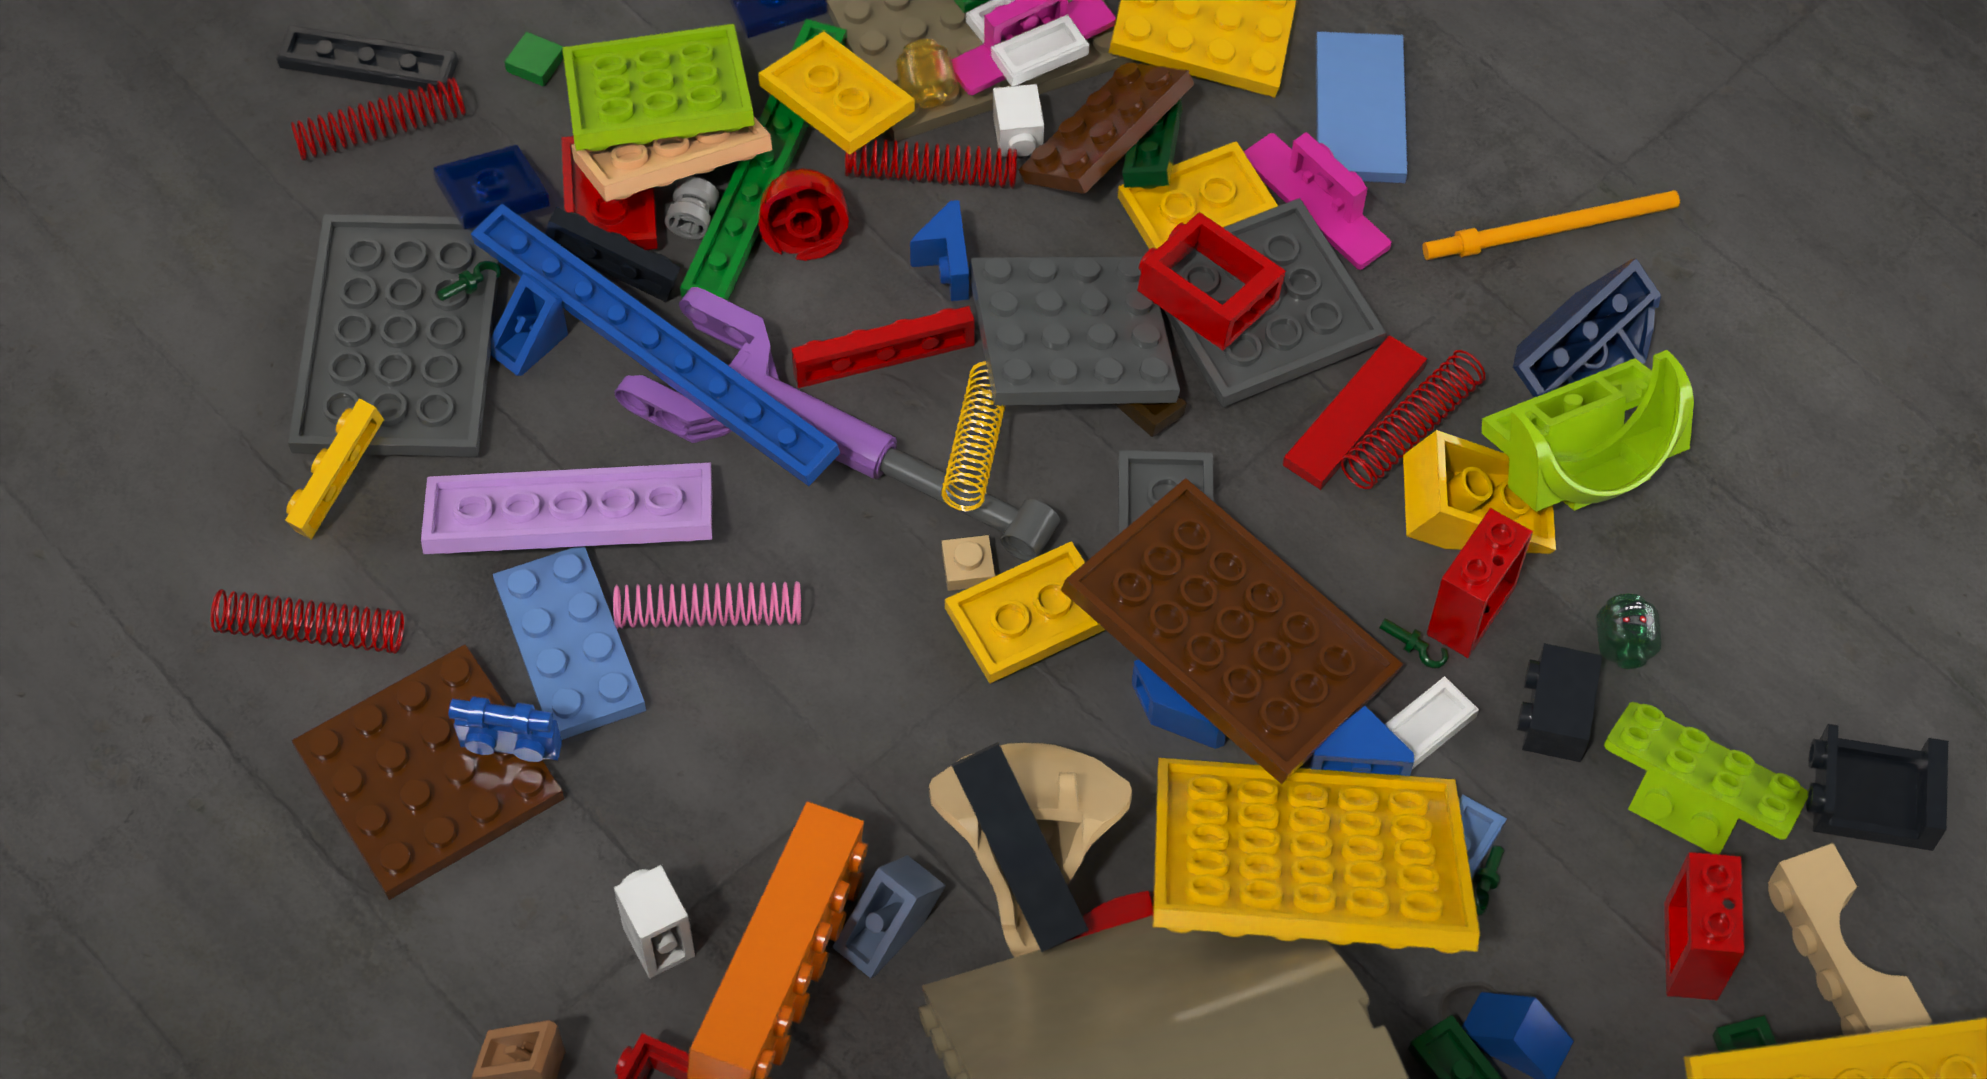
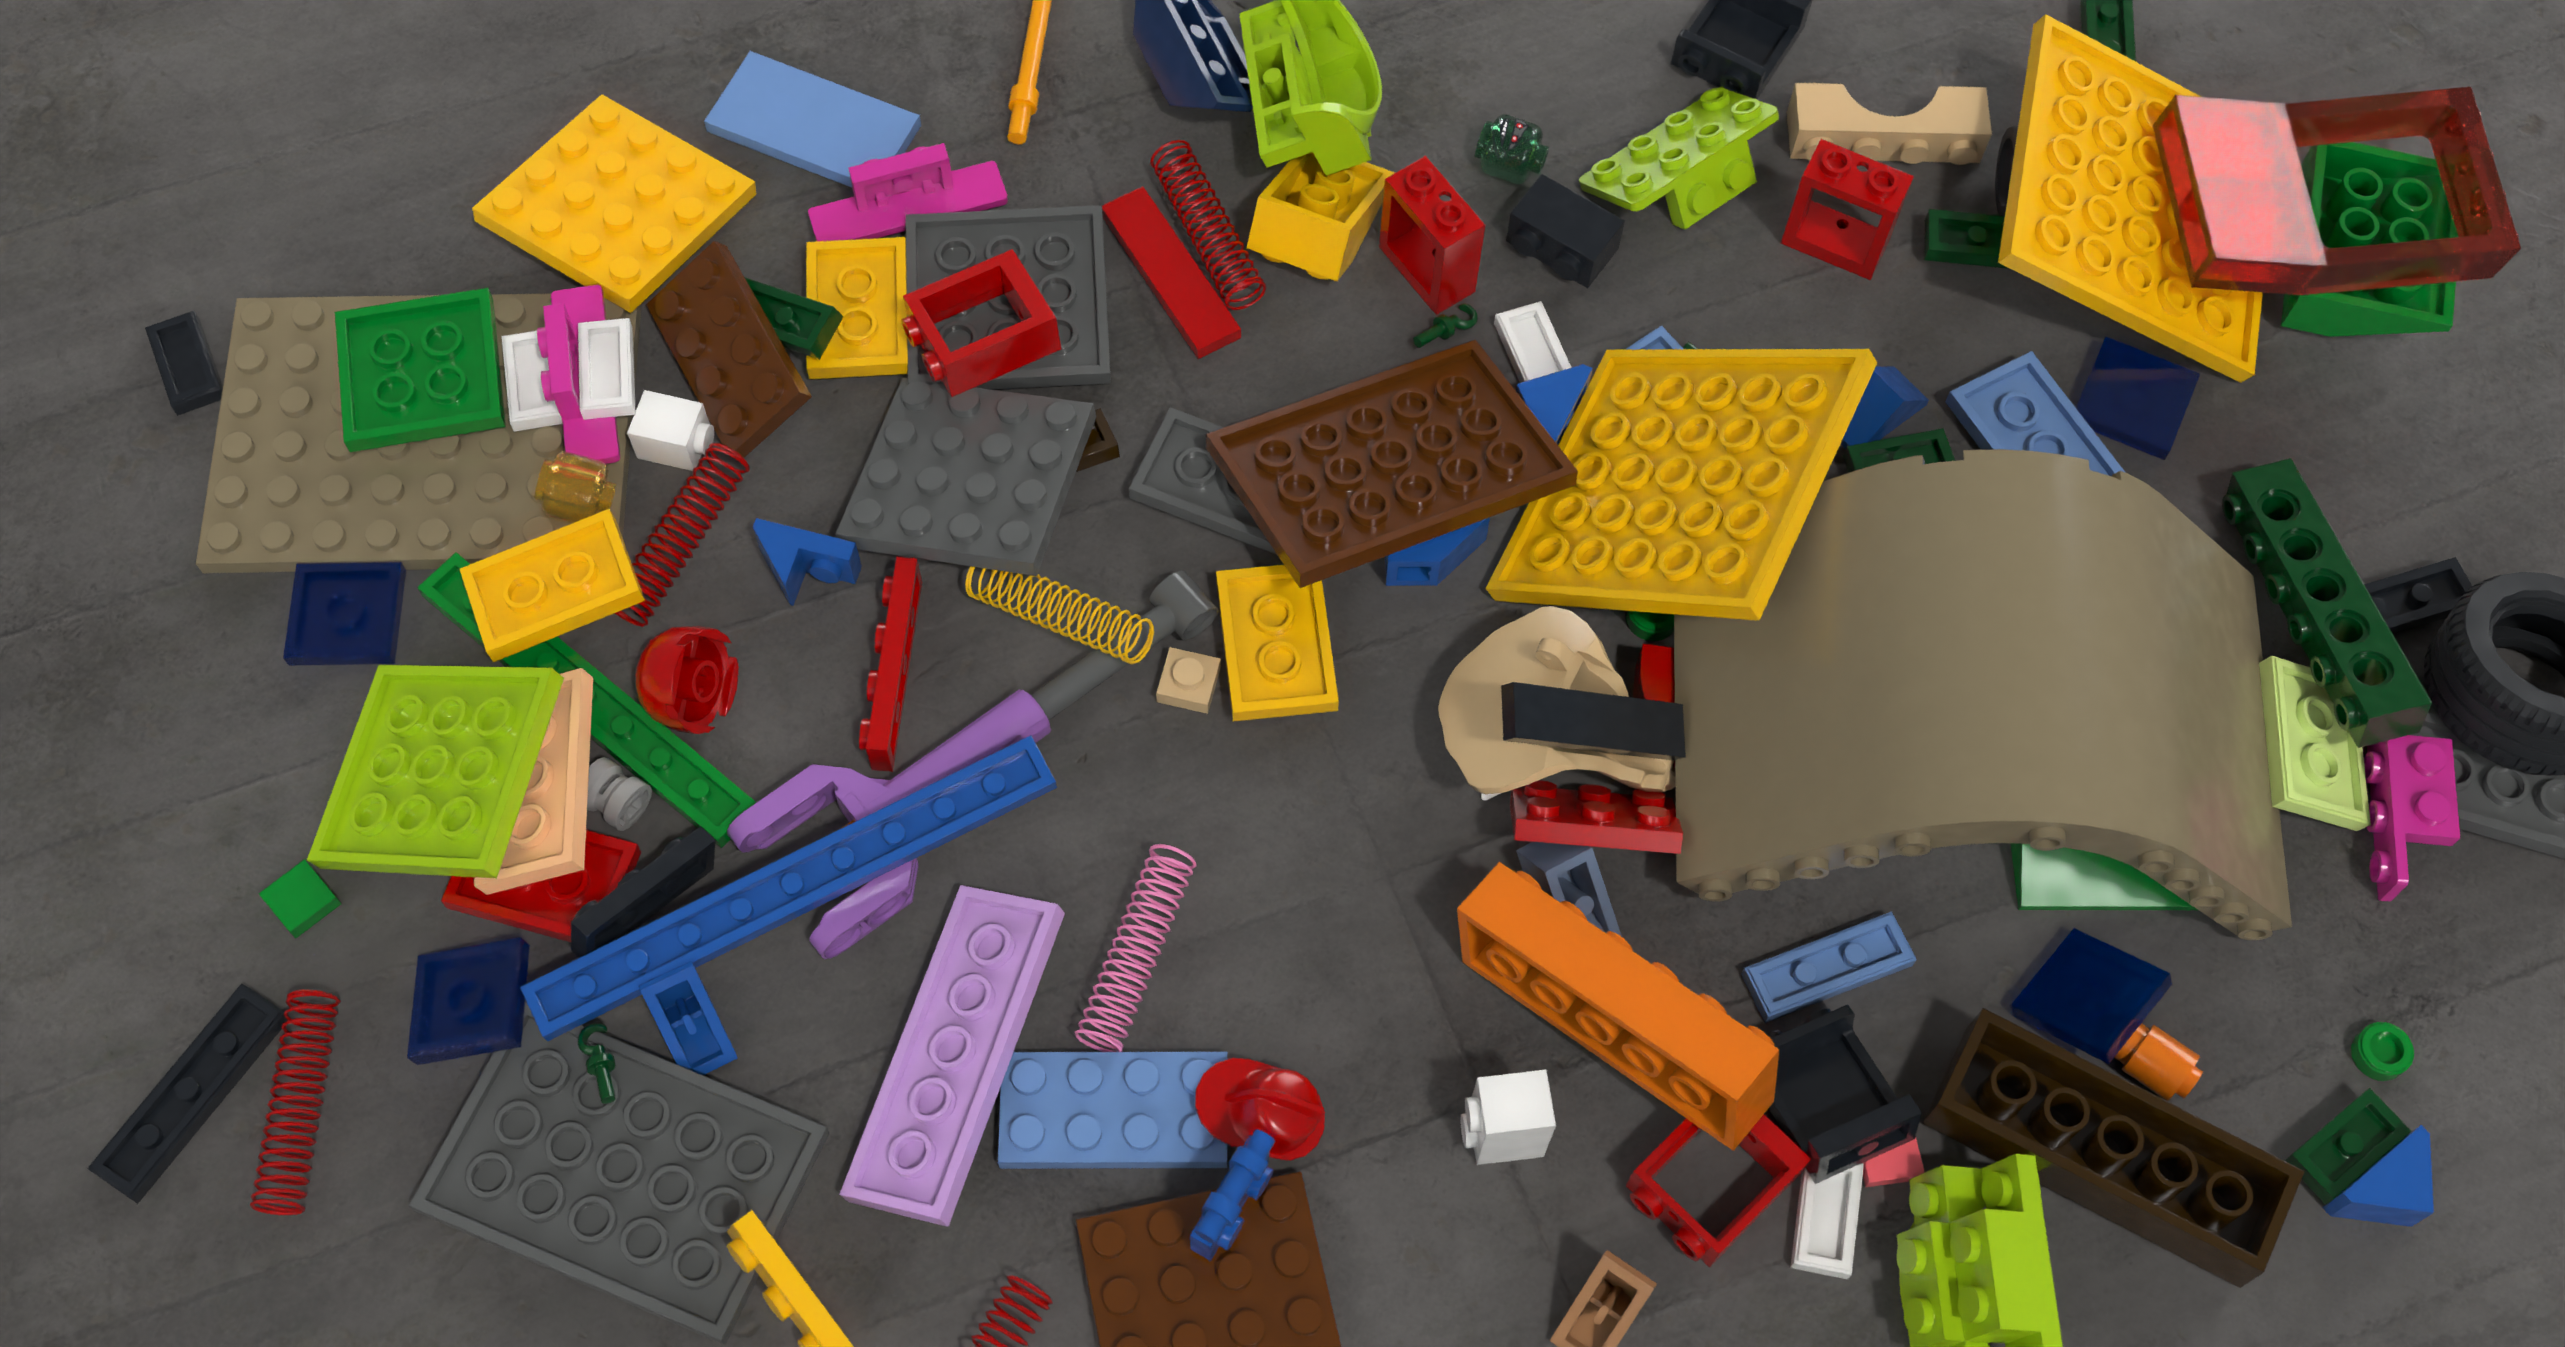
camera: 70 degrees left, 5 degrees up
(604, 743) = (1252, 1095): none -> red piece
(955, 901) = (1595, 817): none -> red plate

